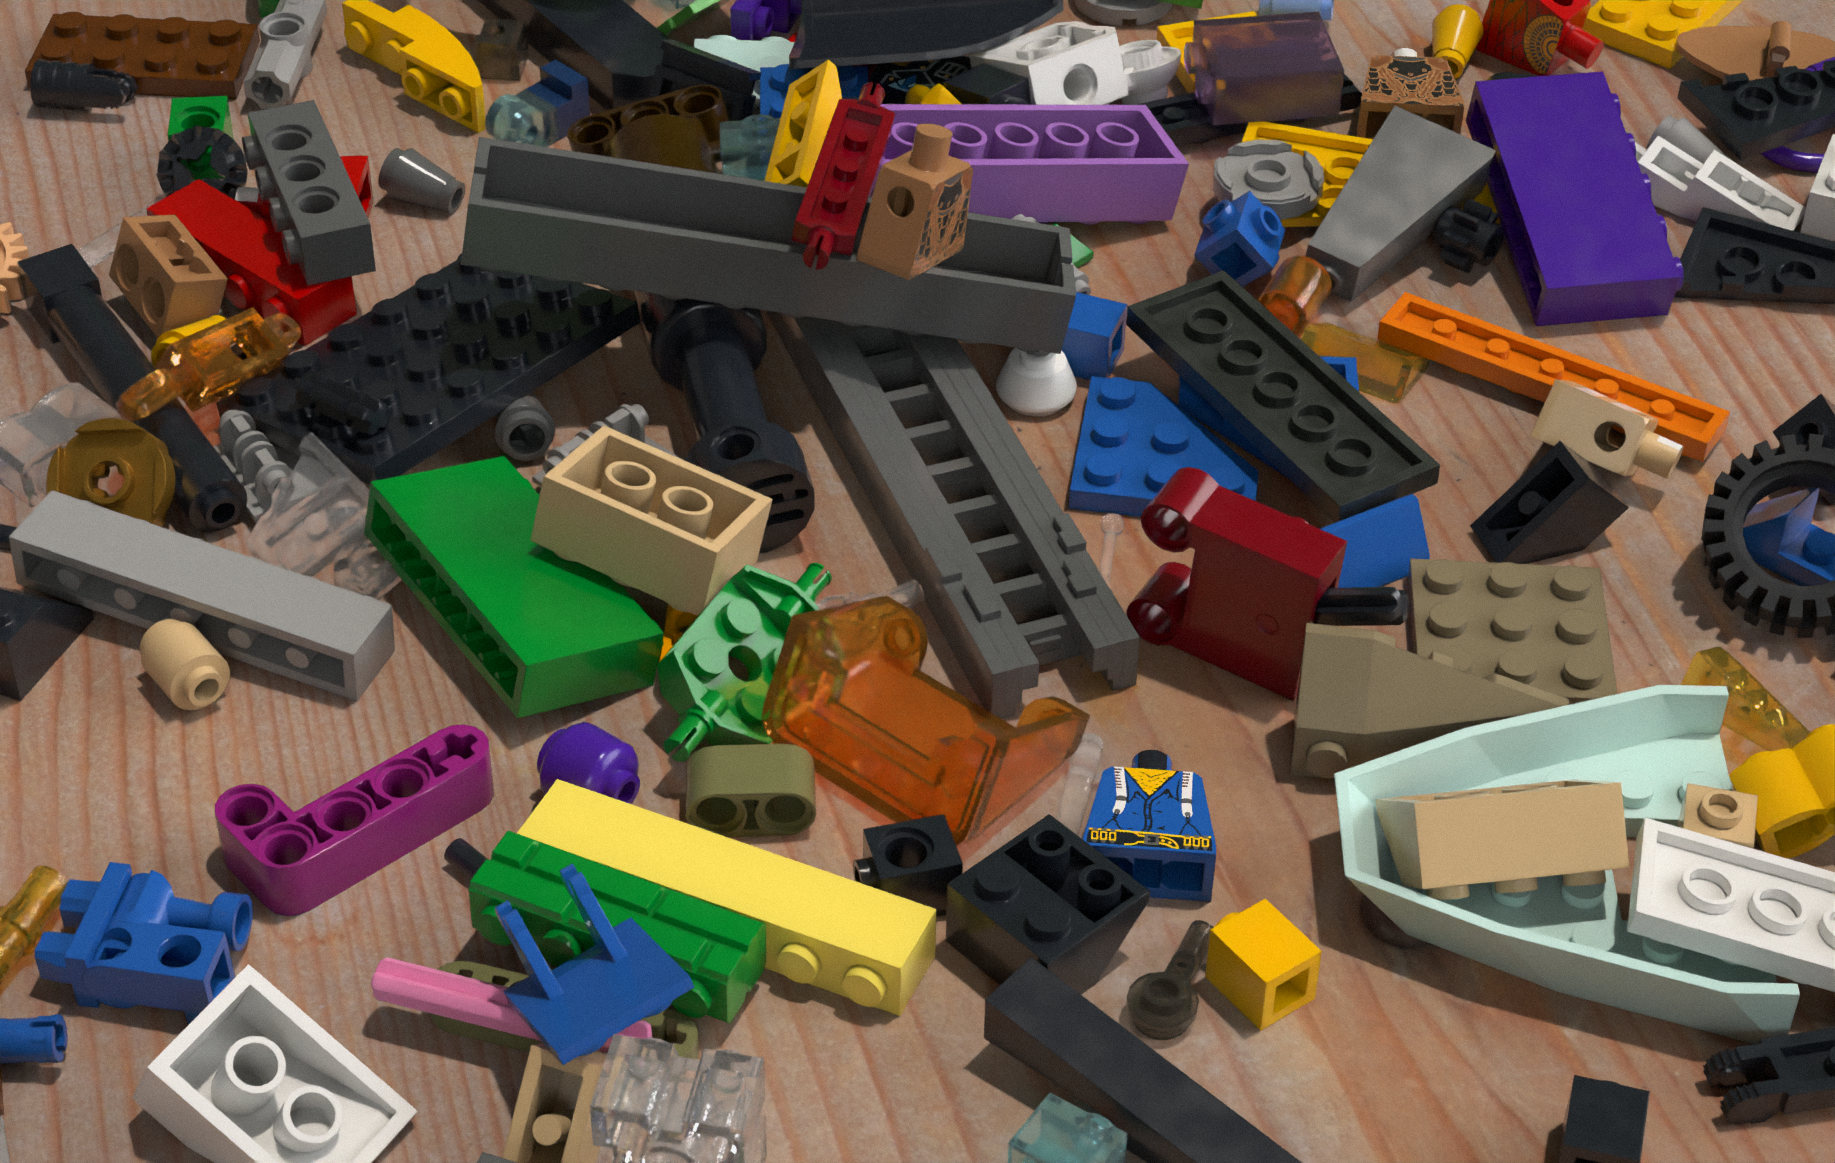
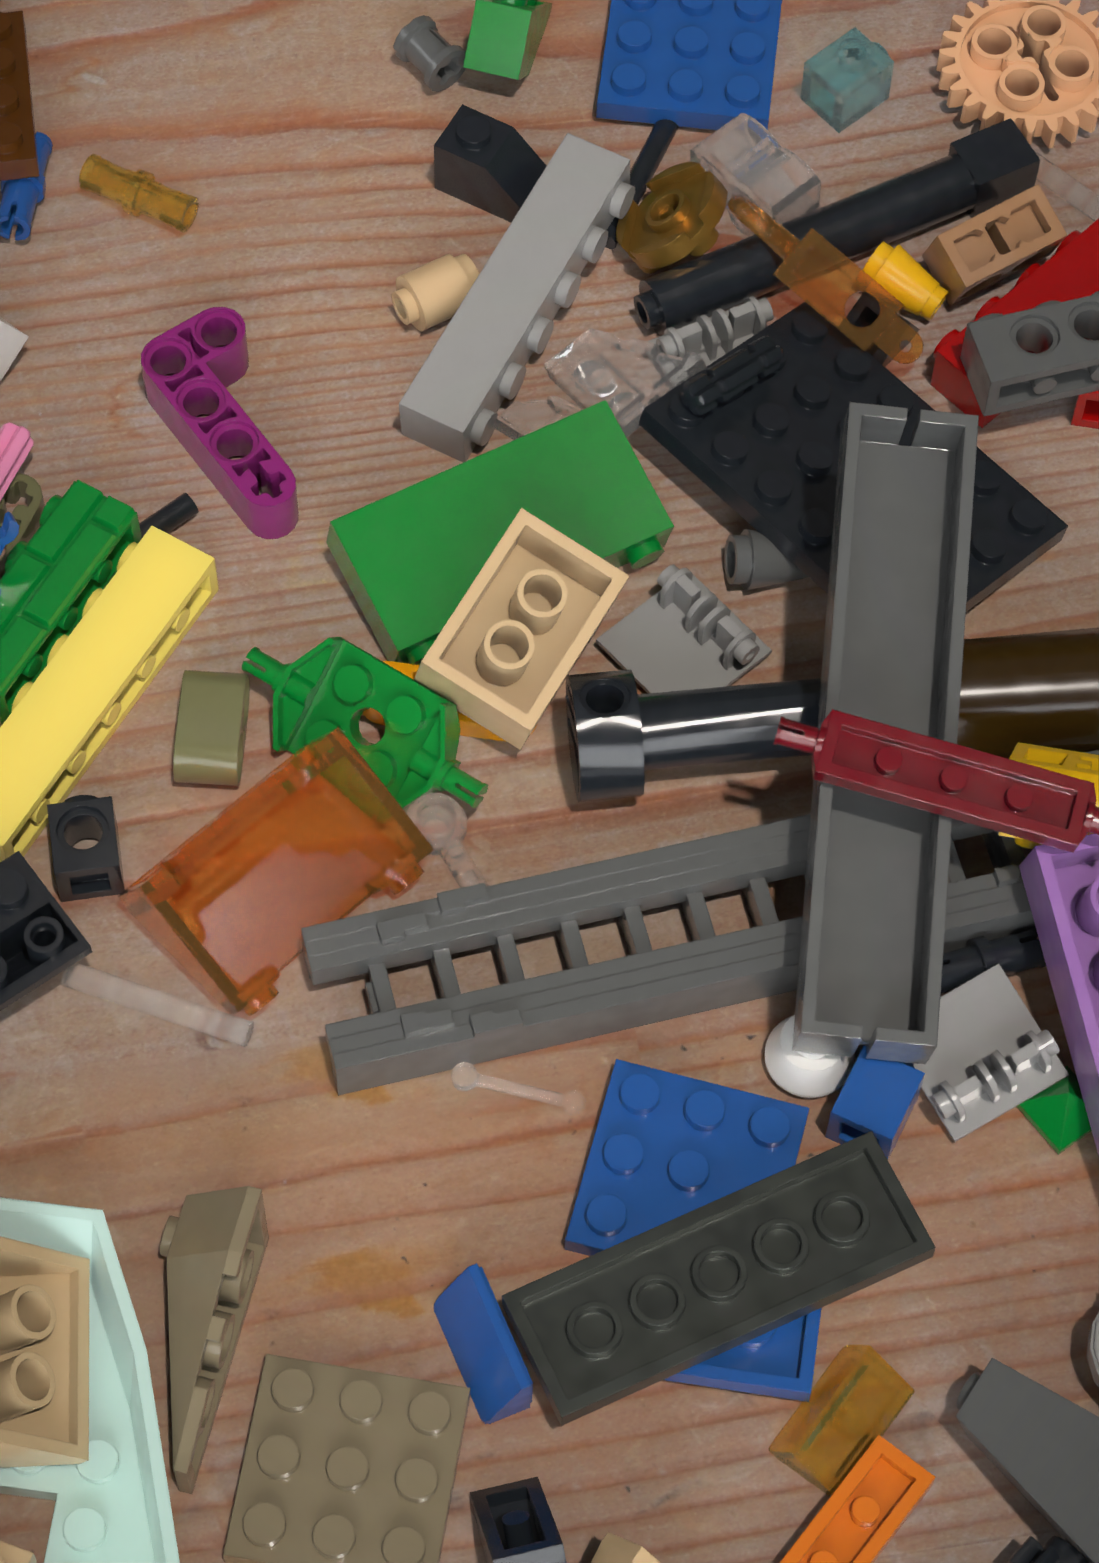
camera: 95 degrees right, 20 degrees up
(144, 943) = (93, 260): blue hips -> none
(590, 760) = (248, 596): dark purple head -> none
(918, 207) = (867, 841): medium nougat torso -> none
(1155, 827) = (103, 1058): blue torso -> none
(1240, 239) = (1036, 1299): blue brick -> none
(1249, 583) = (368, 1169): dark red piece -> none
(1297, 292) = (933, 1345): clear orange brick -> none

